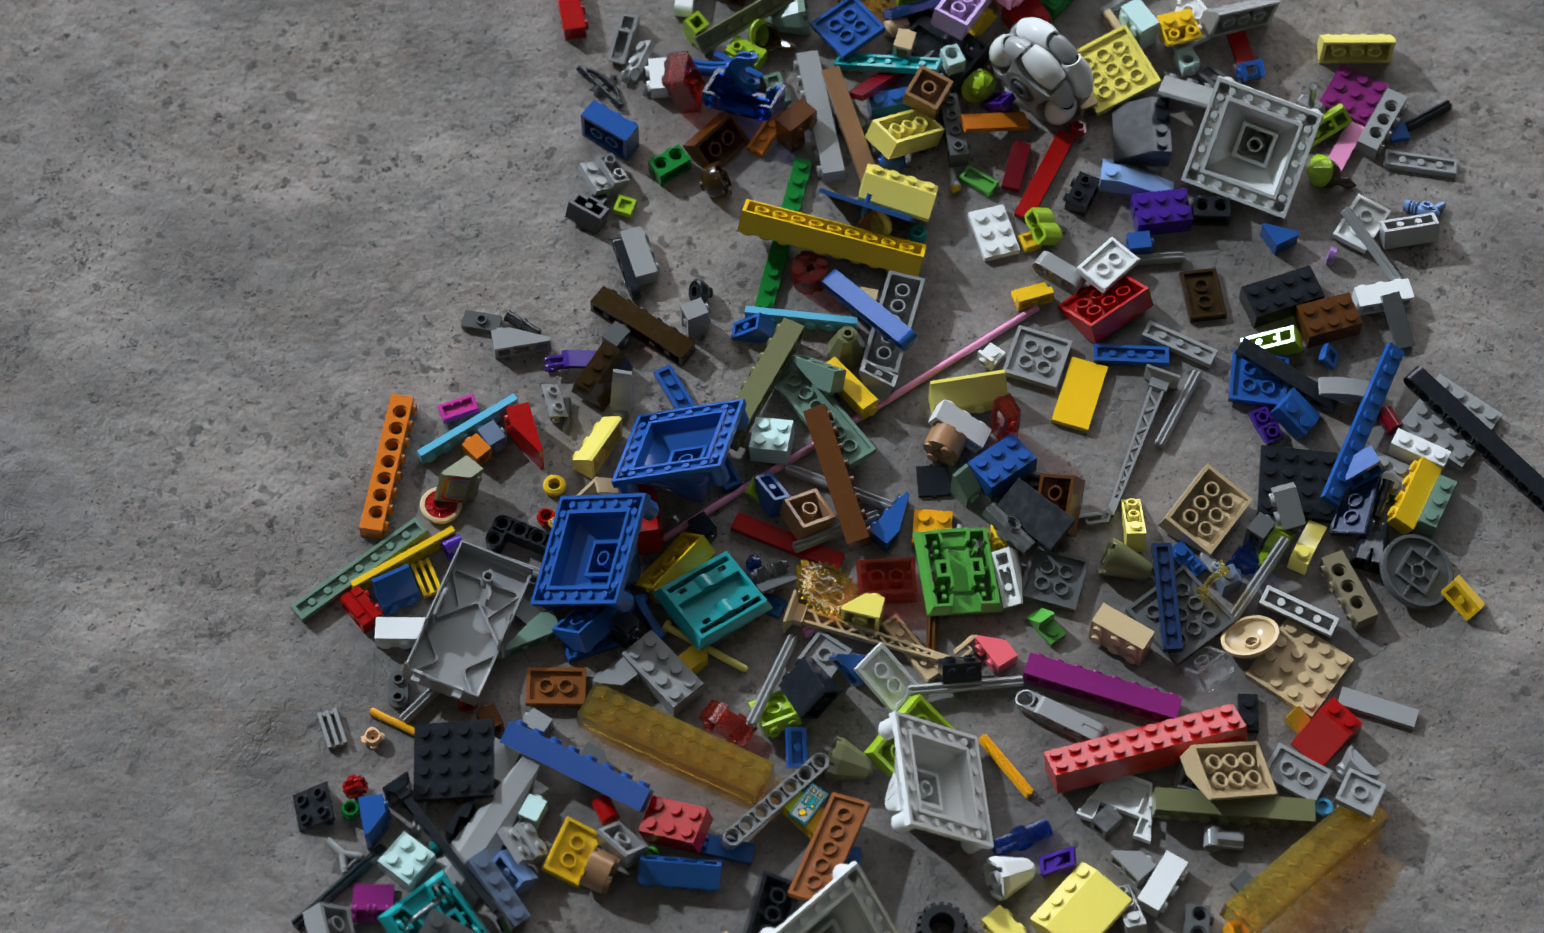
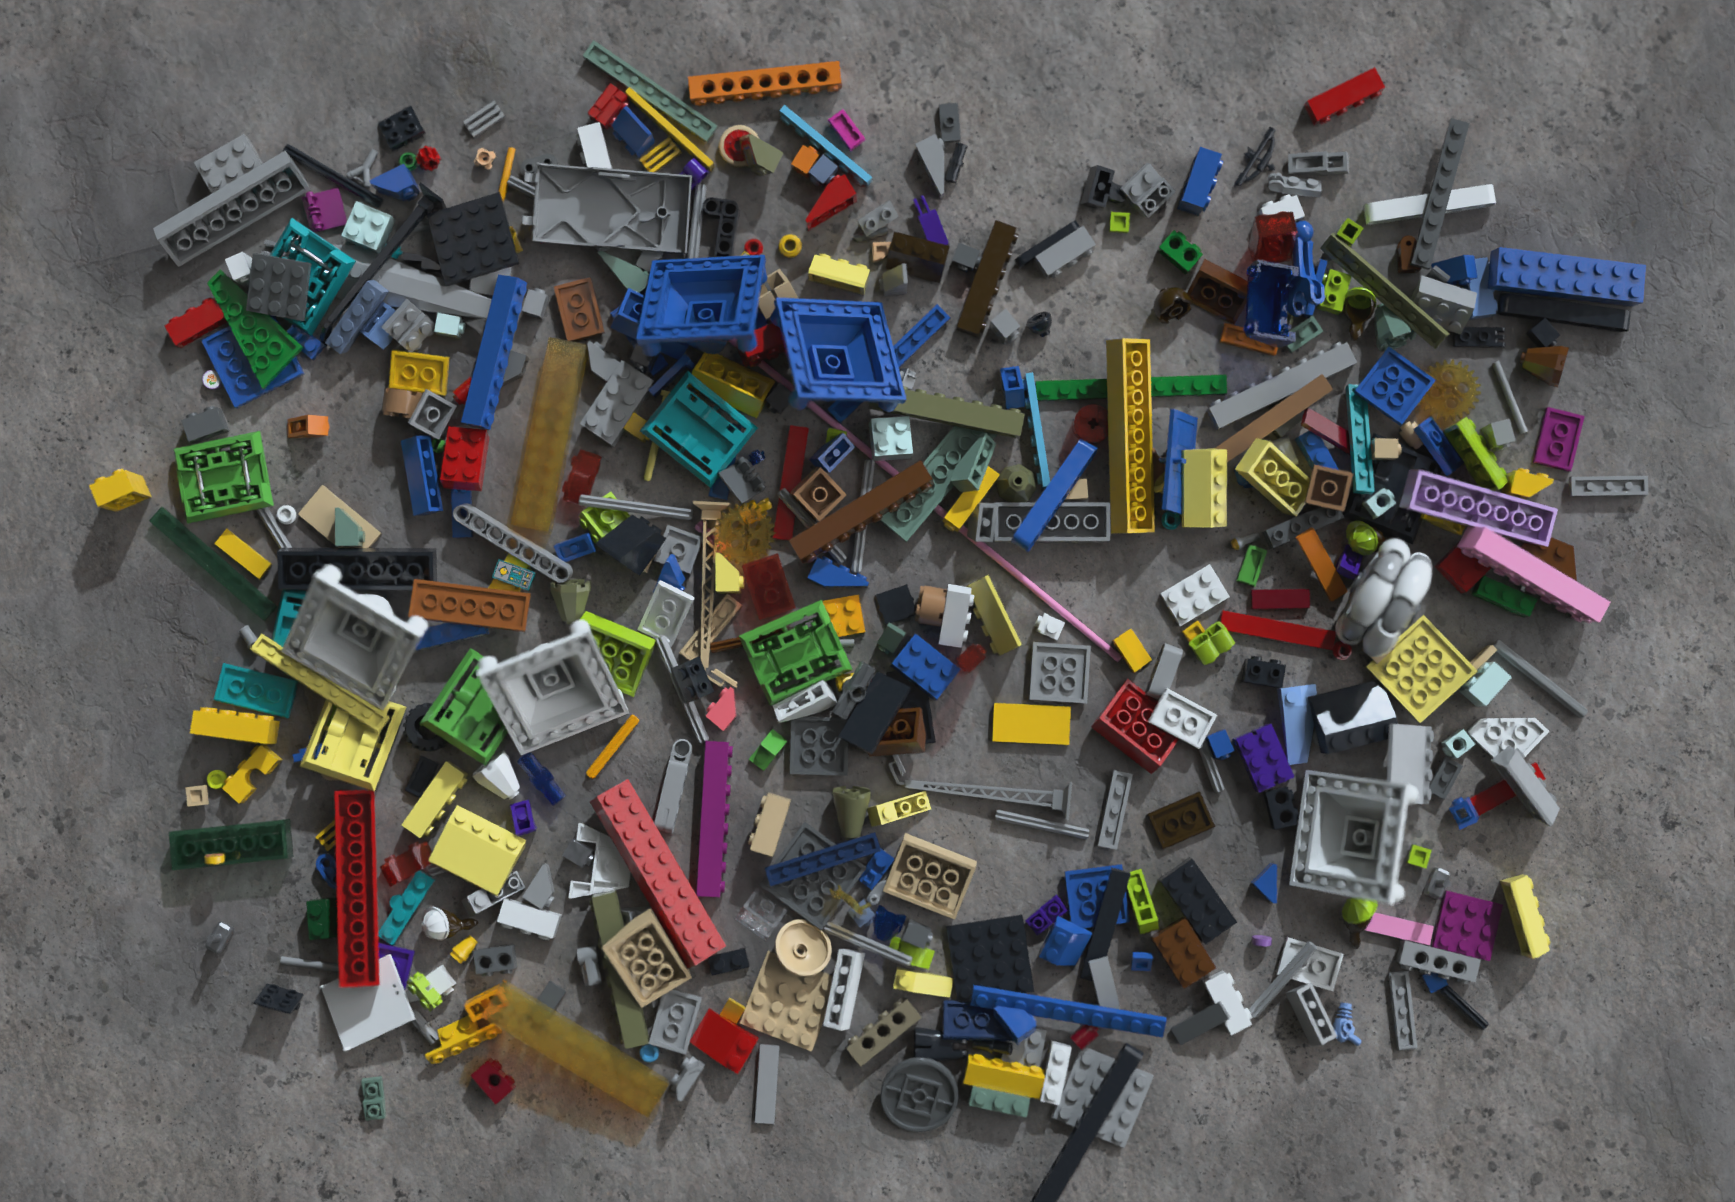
camera: 80 degrees right, 25 degrees up
(491, 712) = (529, 259): reddish brown brick -> none
(584, 410) = (880, 250): none -> light nougat tile
(793, 124) = (1259, 364): reddish brown brick -> none
(937, 867) = (472, 714): none -> bright green piece
(1131, 355) = (1089, 764): blue plate -> none
(1178, 27) = (1487, 727): yellow slope -> none
(1288, 506) = (948, 955): light grey brick -> none
(1333, 121) = (1420, 907): lime slope -> none
(1359, 793) = (655, 1086): light grey plate -> none
(1463, 598) = (905, 1145): yellow panel -> none

